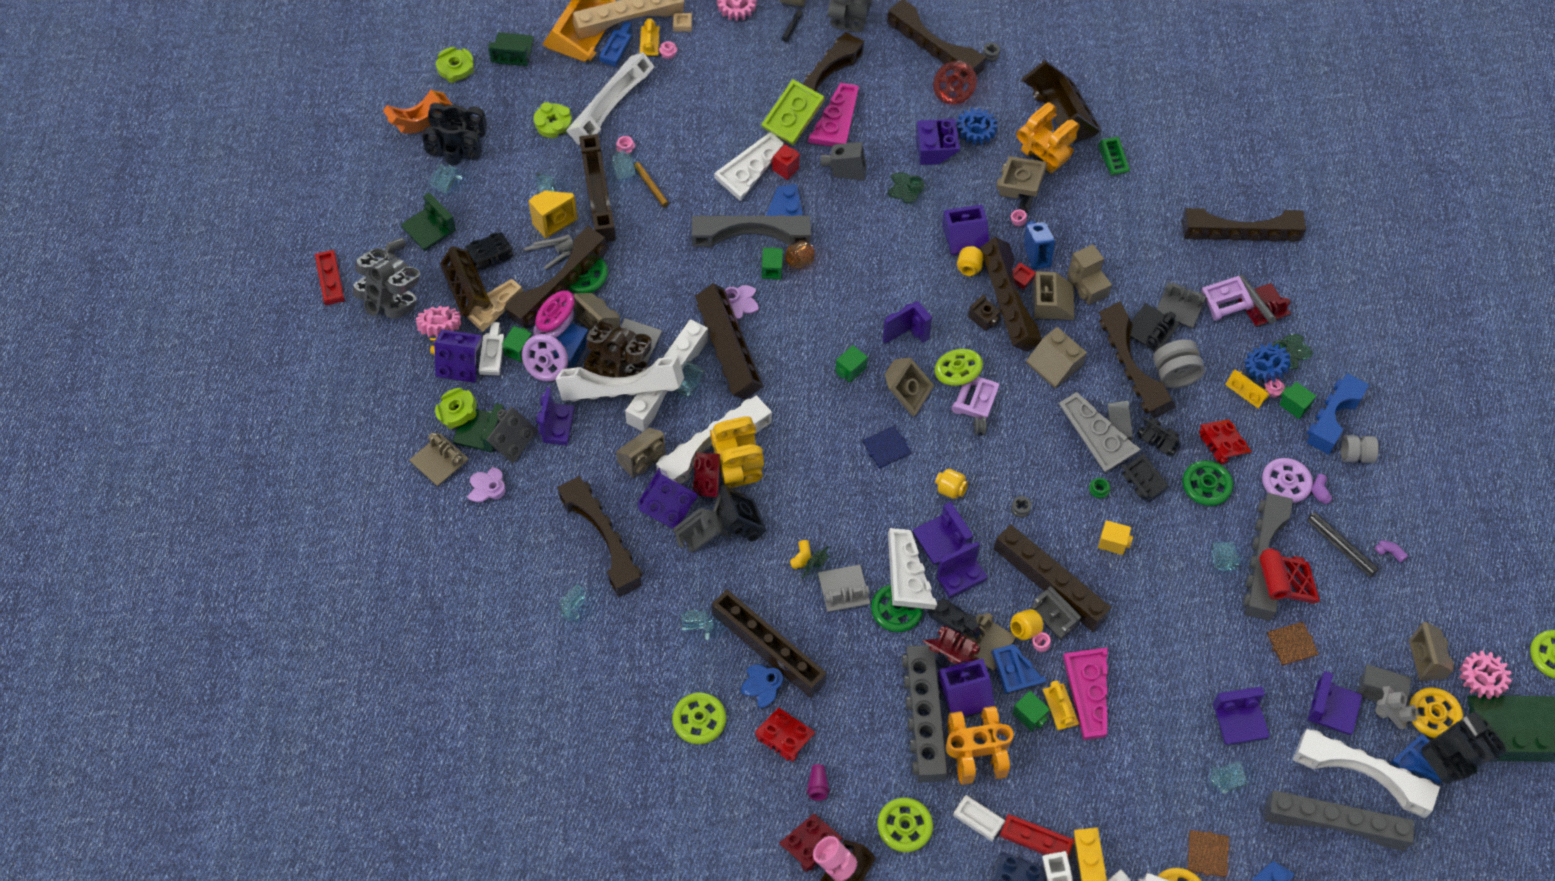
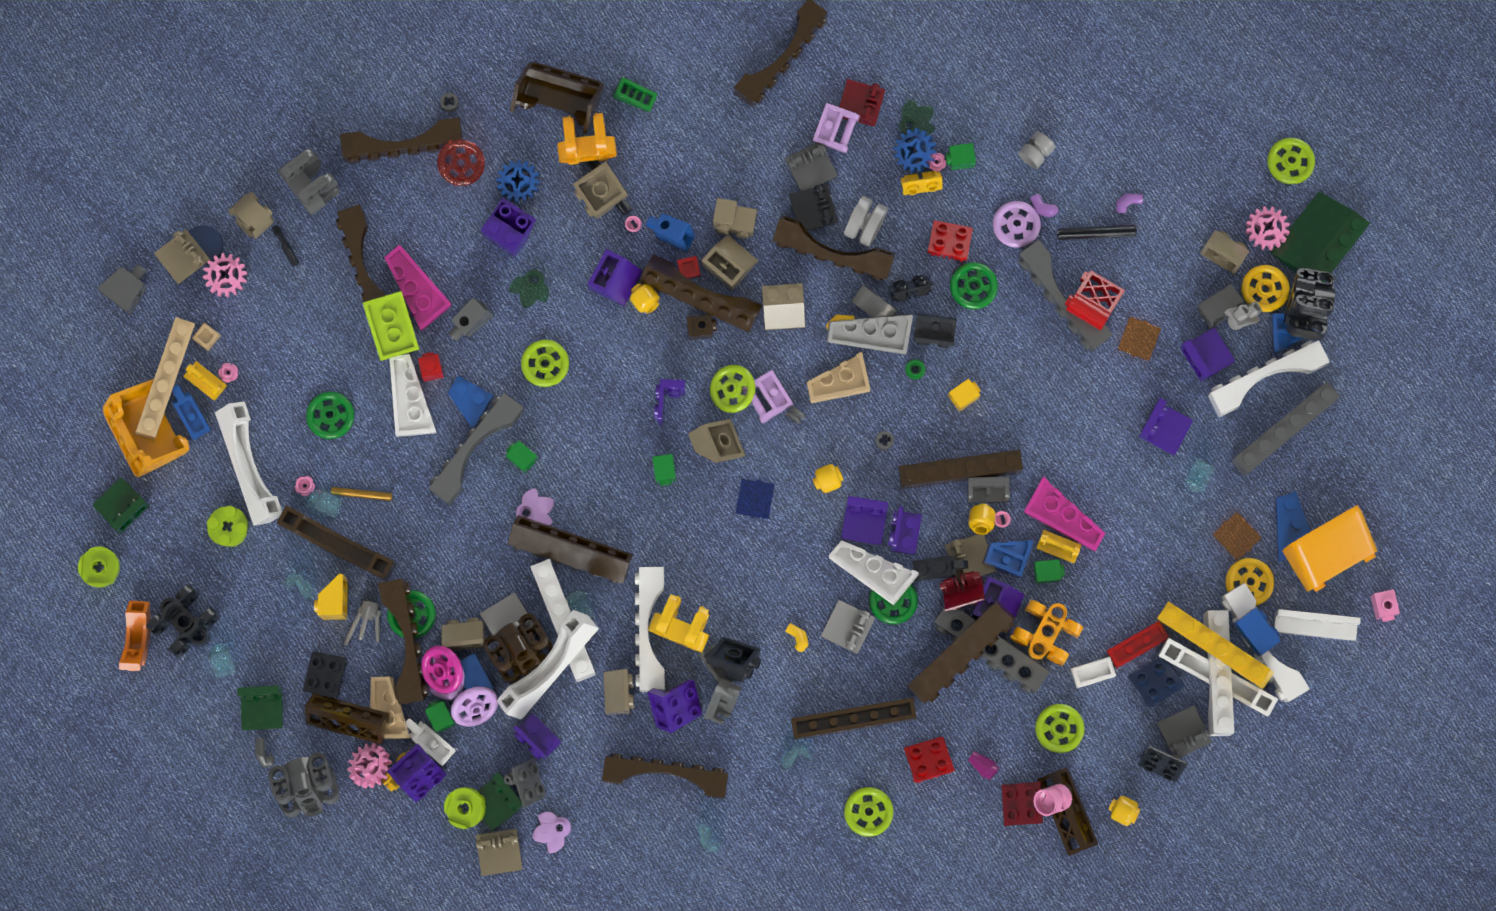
camera: 50 degrees left, 20 degrees up
(329, 277) = (249, 823): red tile -> none
(694, 115) = (315, 423): none -> green plate
(706, 474) = (680, 658): dark red hinge -> none
(759, 685) = (876, 749): blue plate -> none
(799, 254) = (531, 428): clear orange head -> none
(816, 560) = (812, 627): clear green plate -> none
(858, 227) = (531, 353): none -> lime plate
(900, 683) = (961, 652): none -> dark brown brick
(1040, 443) = (842, 381): none -> tan wing
(1225, 556) = (1039, 326): clear light blue bracket -> none
(1258, 301) = (857, 109): dark grey bar -> none
(1327, 430) = (1003, 160): blue arch -> none

